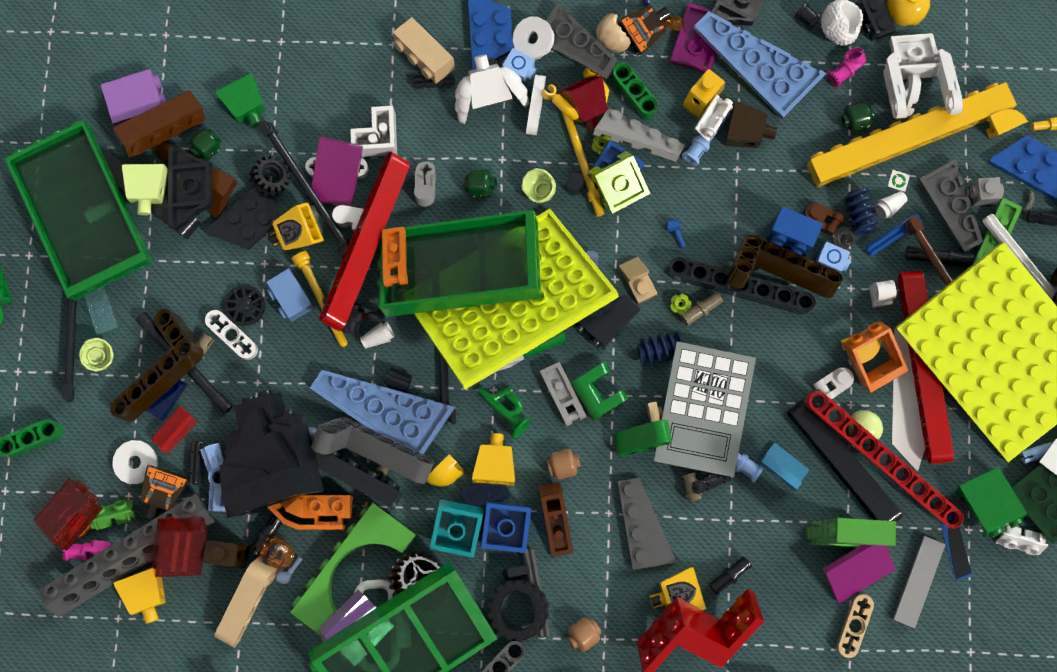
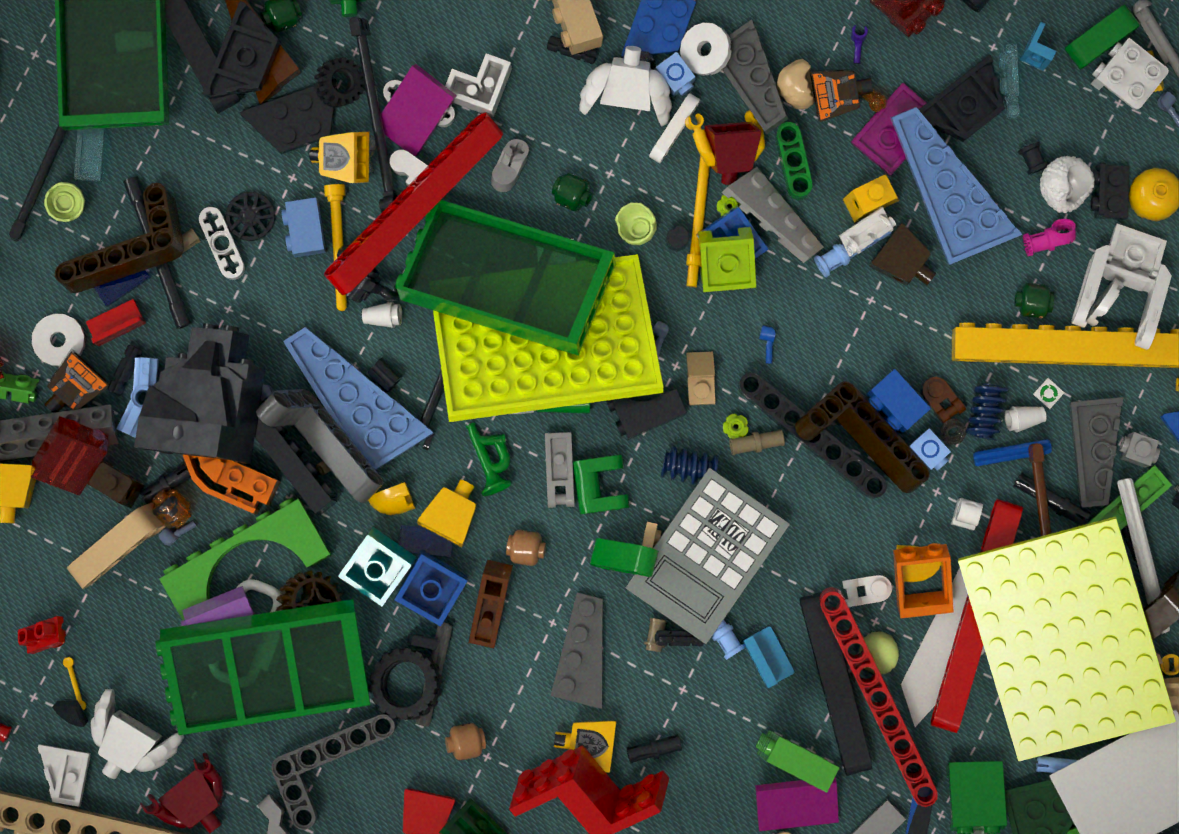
camera: 25 degrees right, 5 degrees up
(145, 185) = (196, 35): yellowish green torso -> none
(394, 256) = (437, 237): orange plate -> none

